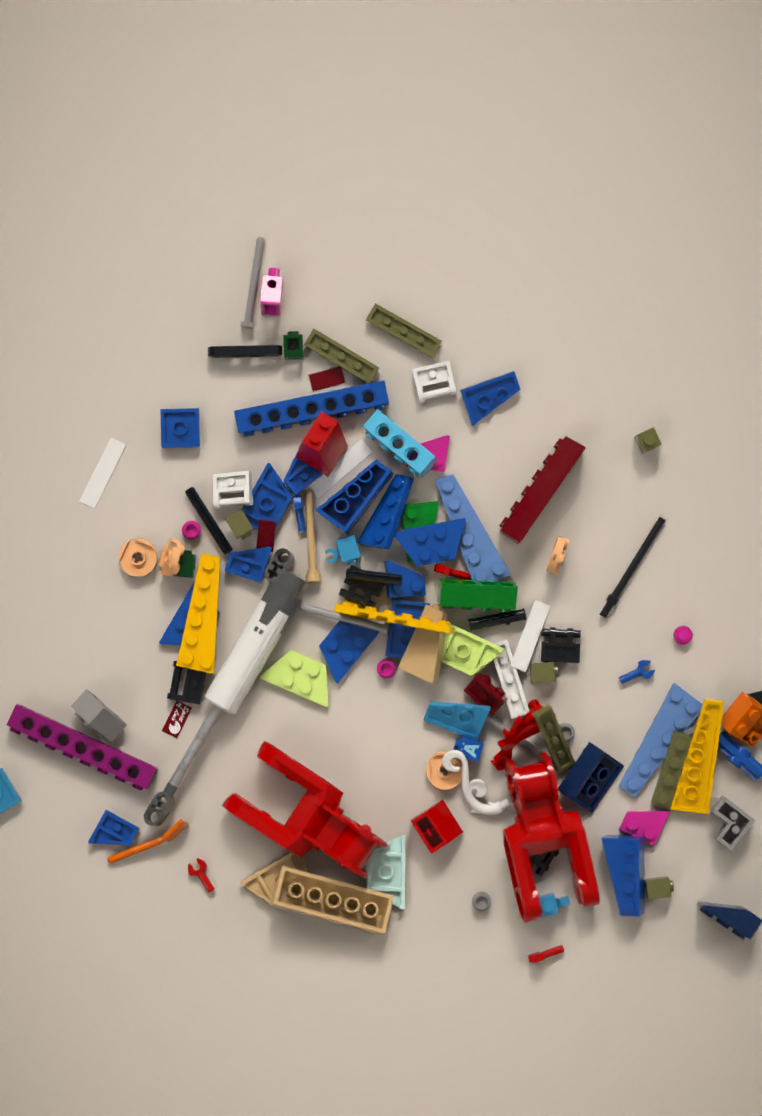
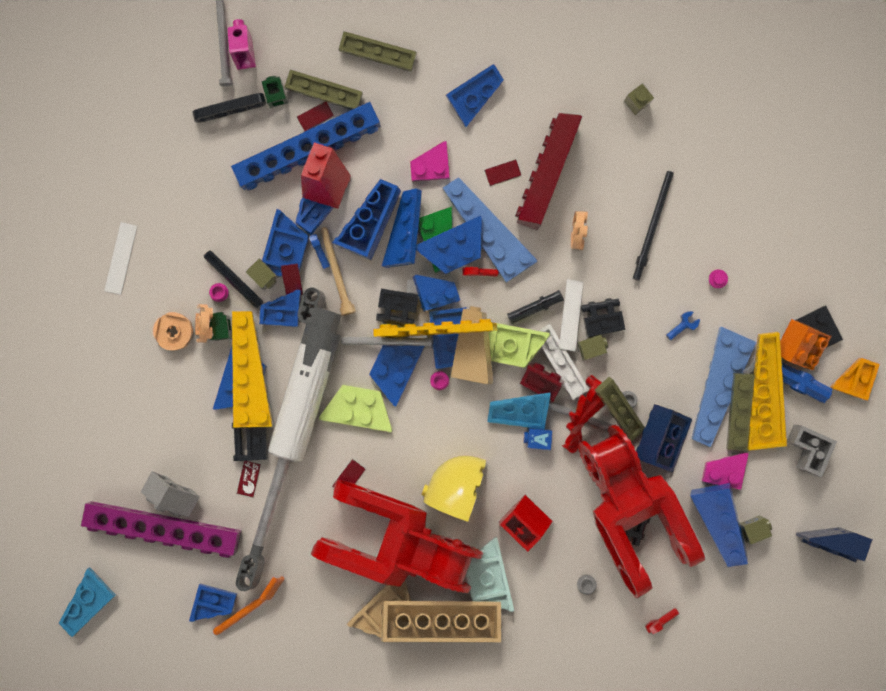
camera: 10 degrees left, 0 degrees up
(180, 428) = (184, 196): blue plate -> none
(201, 874) = (308, 624): red bar -> none
(232, 483) = (246, 237): white plate -> none
(278, 737) = (351, 472): none -> dark red sticker
(346, 463) = (351, 196): white sticker -> none
(346, 549) = (373, 274): dark azure brick -> none
(374, 576) = (406, 293): black axle -> none
(376, 773) = (454, 486): none -> light yellow brick
(379, 422) = (376, 143): medium azure brick -> none
(432, 375) = (416, 87): white plate -> none
(437, 778) = (530, 469): light nougat plate -> none
(477, 594) = (510, 286): green brick -> none
(478, 784) = (546, 476): white plant -> none
(498, 479) = (502, 172): none -> dark red sticker
(550, 903) = (656, 571): dark azure brick -> none

